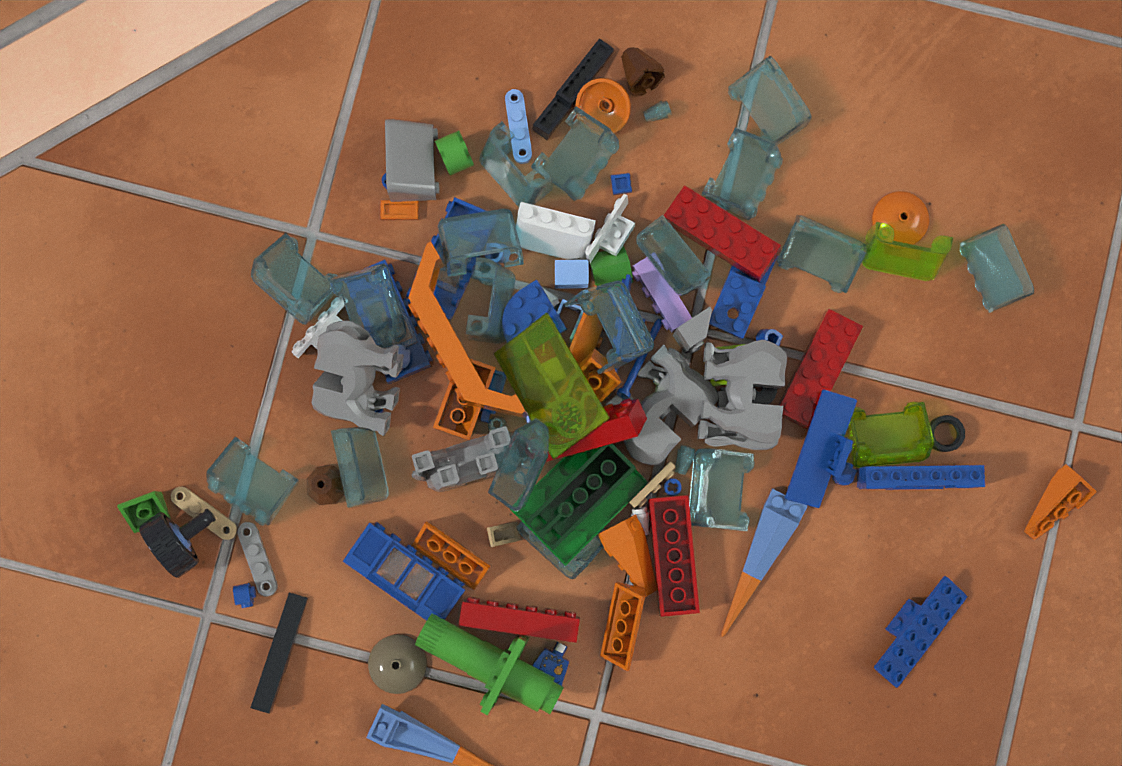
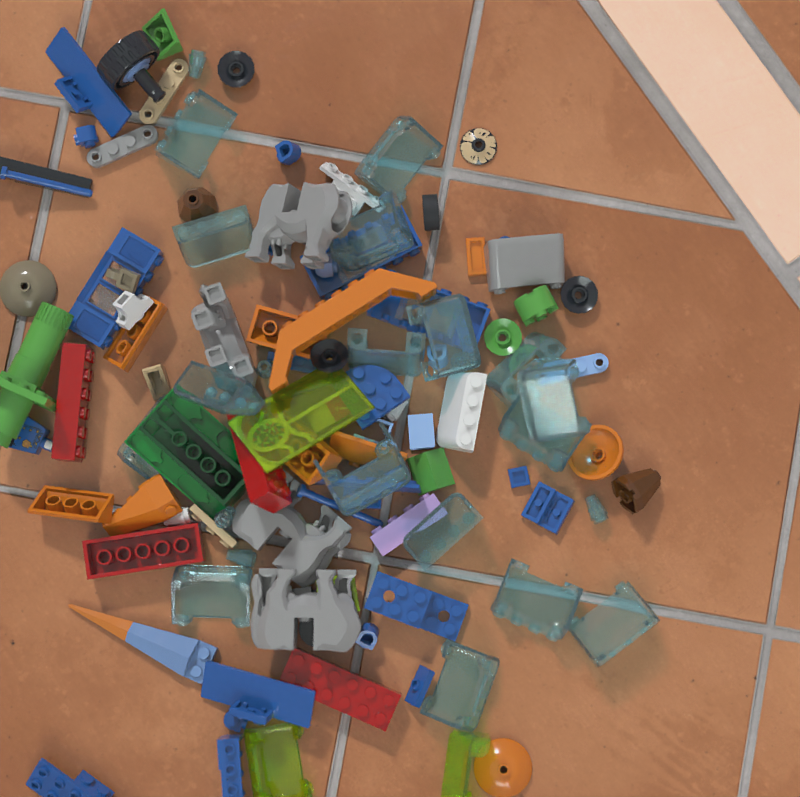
camera: 90 degrees right, 0 degrees up
(177, 477) = (196, 63): none -> clear light blue cone
(178, 433) = (234, 60): none -> black dish
(190, 593) = (83, 84): none -> blue bracket
(276, 679) = (44, 182): none -> blue bar
(278, 389) = (288, 152): none -> blue plate
(290, 209) = (476, 155): none -> tan dish
(352, 249) = (431, 212): none -> black tyre
(397, 558) = (125, 278): none -> dark tan plate
(428, 555) = (131, 308): none -> white brick
(445, 103) = (588, 293): none -> black dish
(478, 180) = (503, 327): none -> bright green dish
(484, 356) = (329, 349): none -> black dish
(550, 139) = (550, 400): none -> clear light blue windscreen
(568, 92) = (626, 428): black slope -> none
(613, 233) = (465, 471): white bracket -> none
(645, 471) = (224, 517): none -> clear light blue cone
(653, 158) = (547, 507): none -> blue slope
(673, 481) = (219, 547): blue bush -> none
(693, 332) = (367, 557): light grey slope -> none
(722, 233) = (472, 581): red brick -> none
(819, 292) = (419, 686): none -> blue plate

